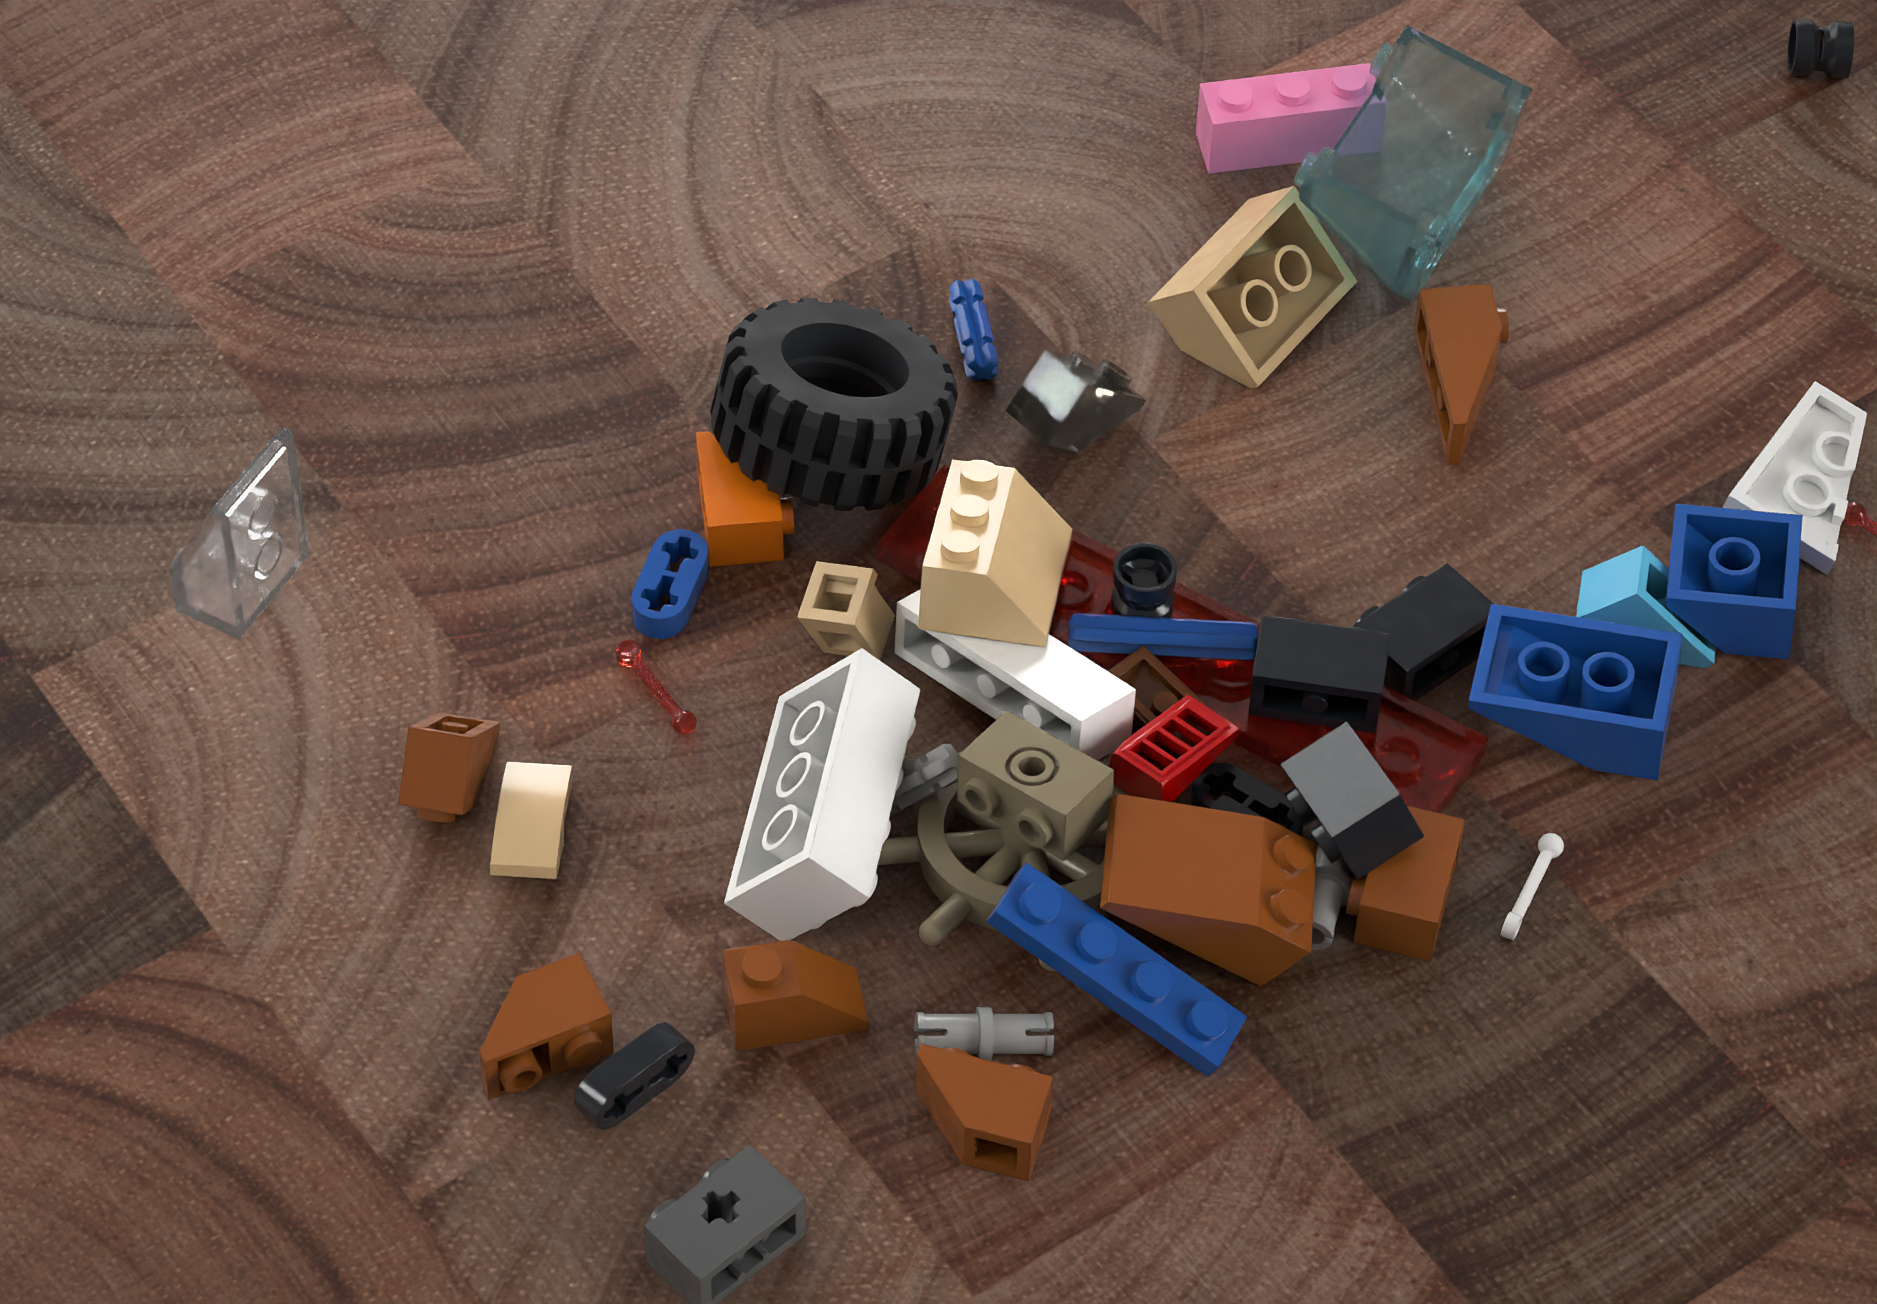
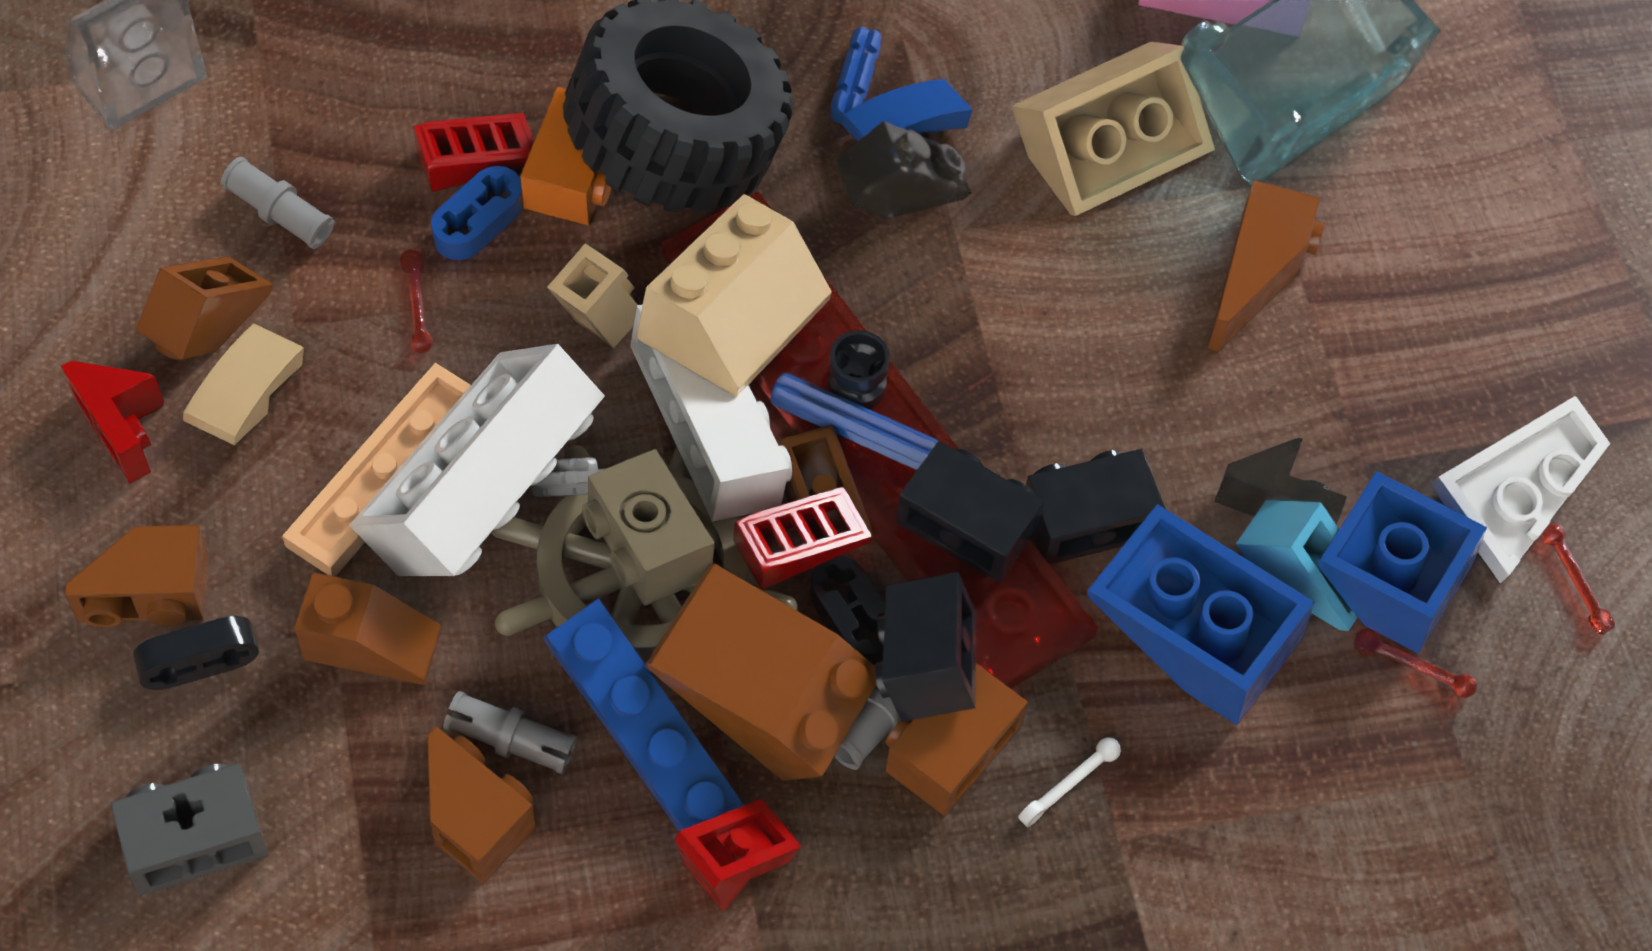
camera: 20 degrees right, 10 degrees up
(413, 889) = (113, 405): none -> red slope
(463, 642) = (277, 202): none -> light grey pin
(612, 557) = (453, 134): none -> red slope
(697, 919) = (323, 529): none -> light nougat plate
(1056, 330) = (916, 107): none -> blue slope
(1255, 1057) = (734, 849): none -> red slope
(1571, 550) = (1268, 477): none -> clear smoke slope
(1737, 668) = (1368, 642): none -> clear red hinge

